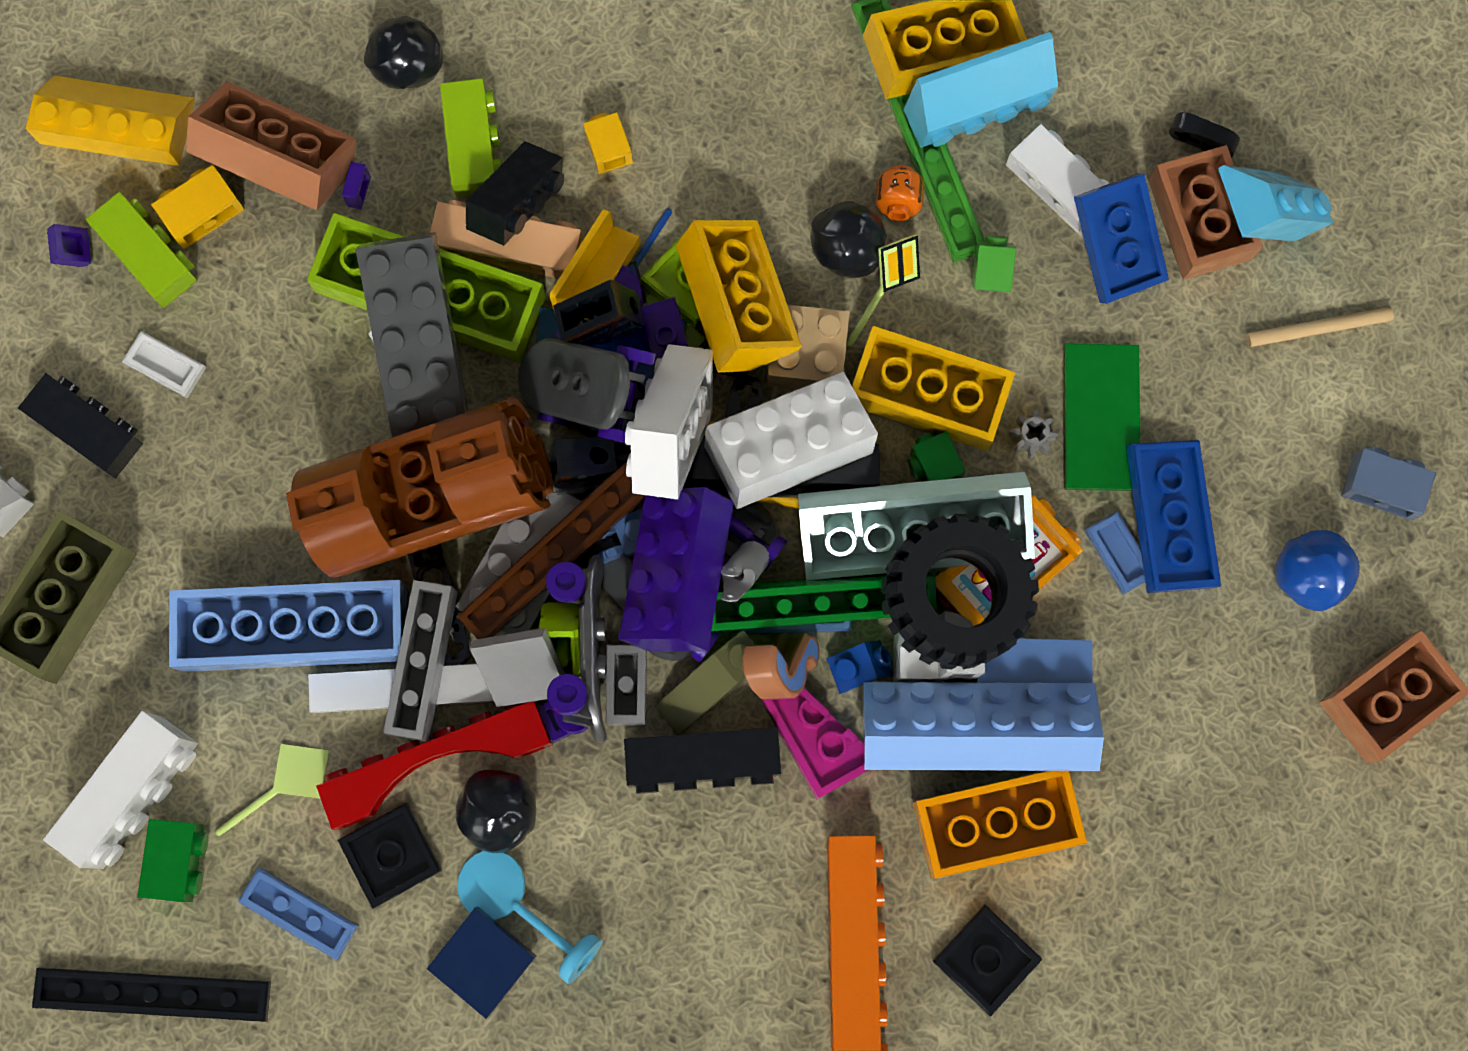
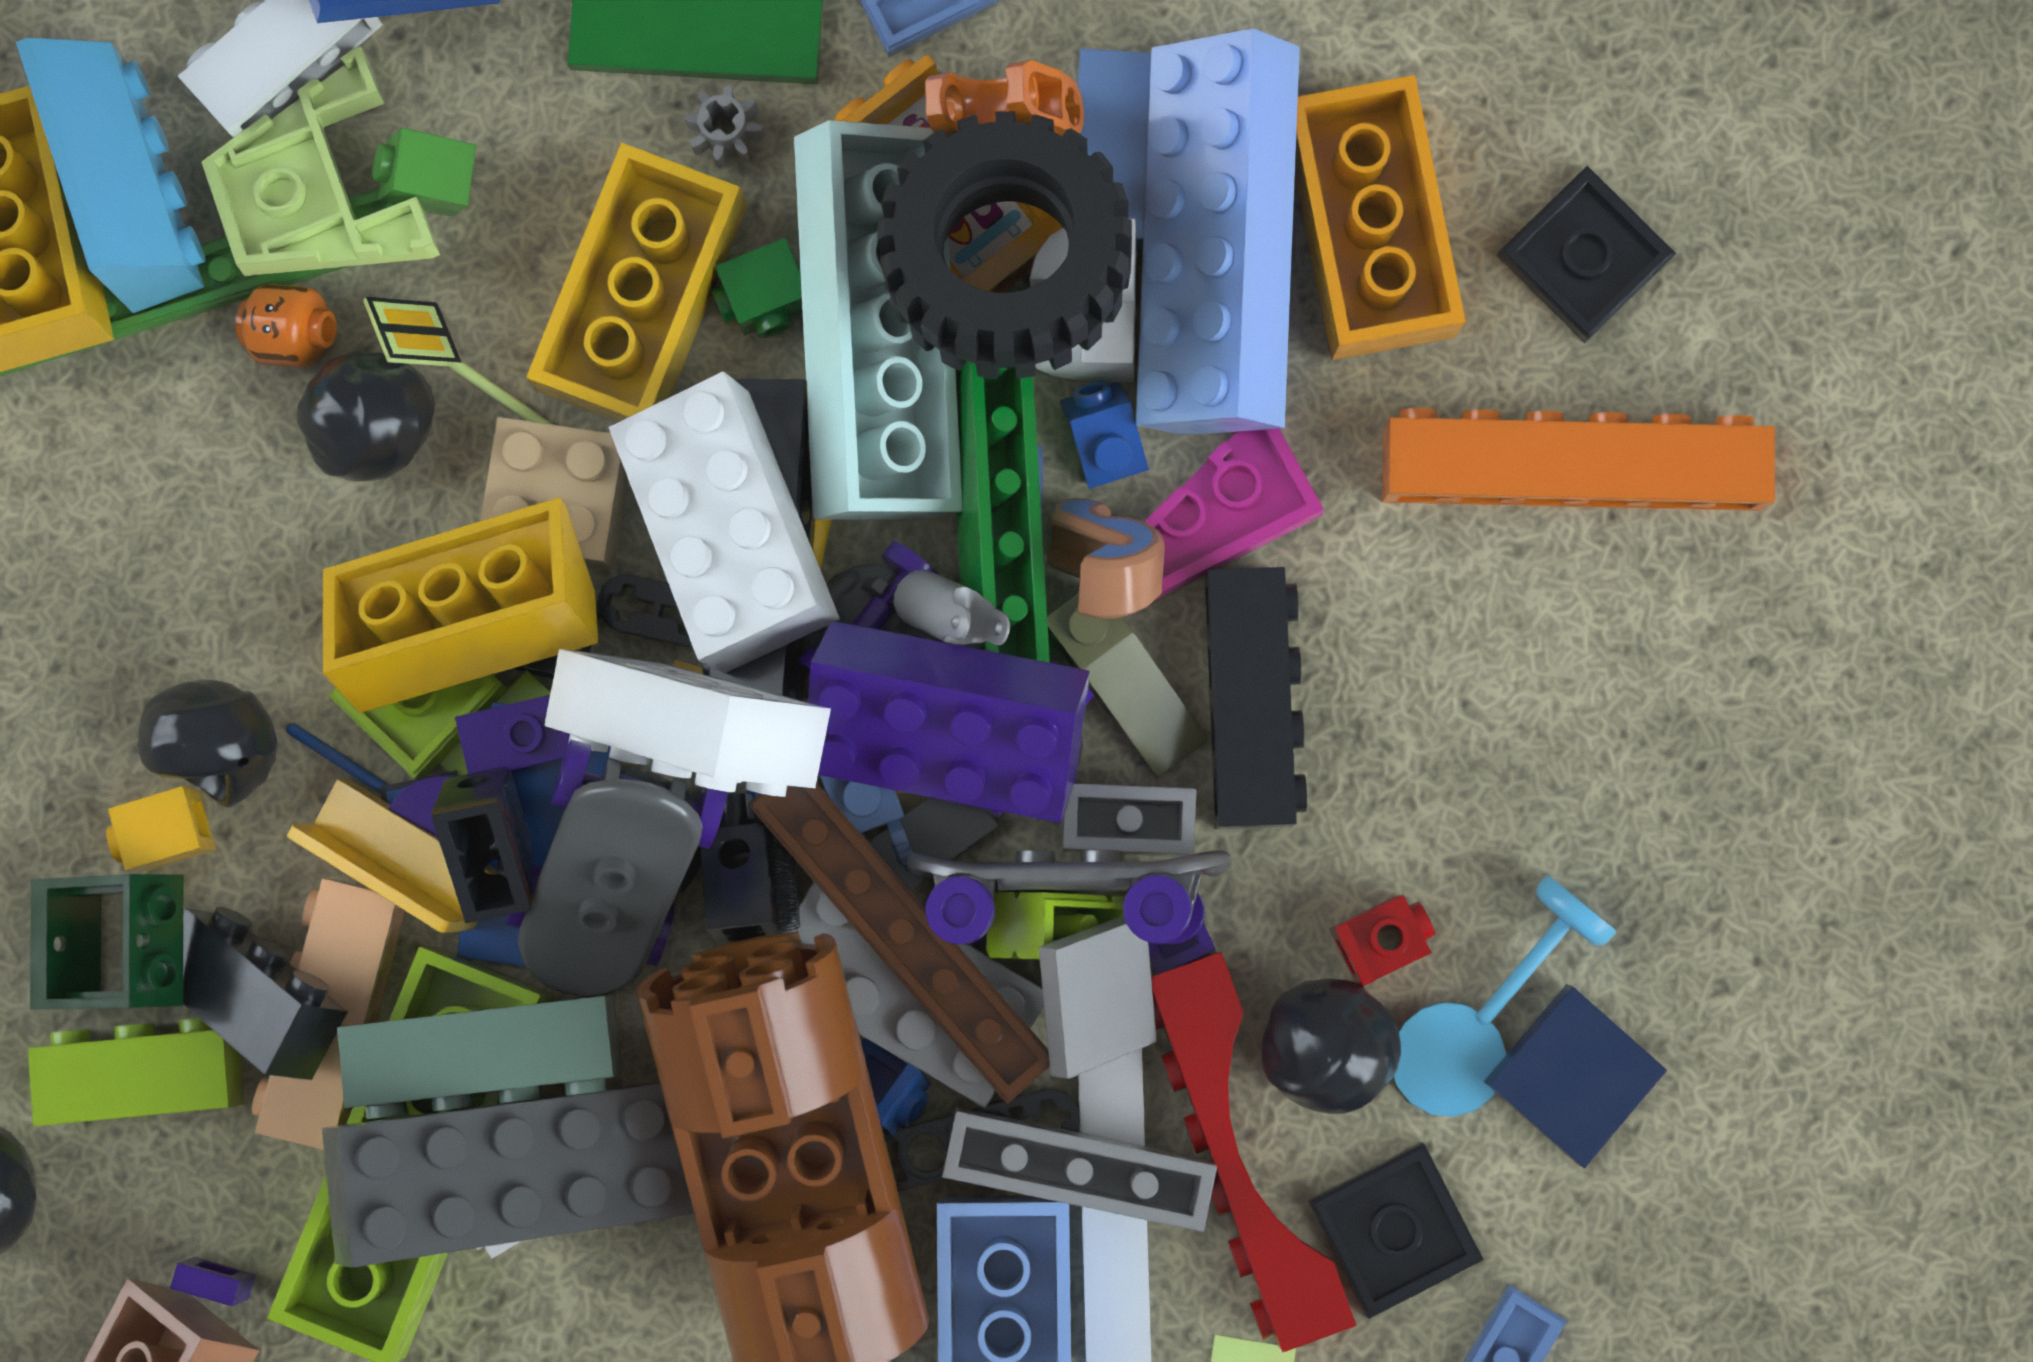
camera: 85 degrees left, 5 degrees up
(466, 552) = (896, 1087): none -> blue bracket
(480, 317) = (478, 1053): none -> sand green brick
(524, 100) = (72, 913): none -> dark green window
(553, 828) = (1359, 941): none -> red brick
(659, 163) = (209, 738): none -> black piece
(978, 187) = (286, 196): none -> yellowish green wing
(1054, 599) = (1026, 90): none -> orange piece

